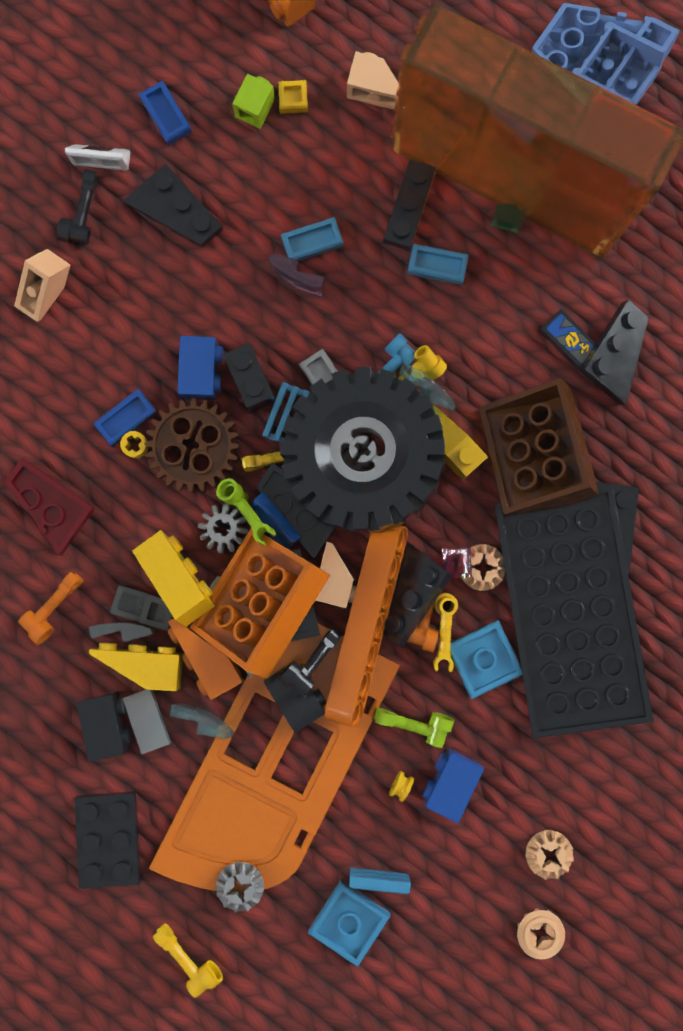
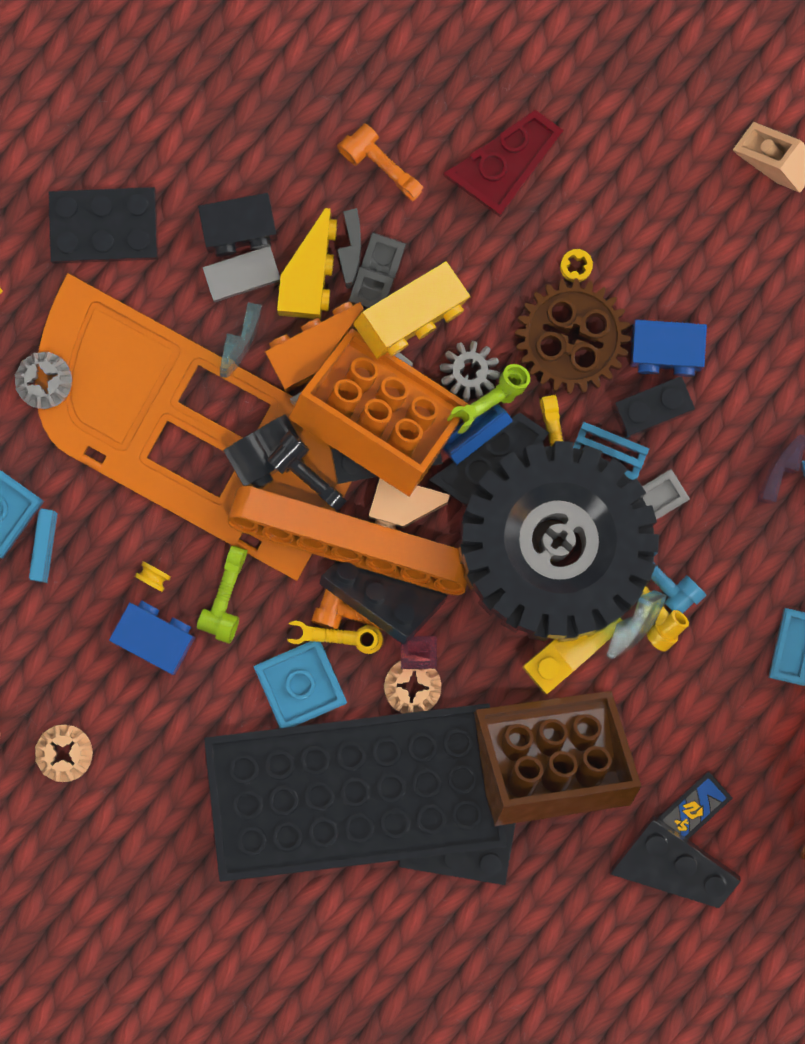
camera: 95 degrees right, 0 degrees up
(125, 417) = (610, 255): blue tile -> none

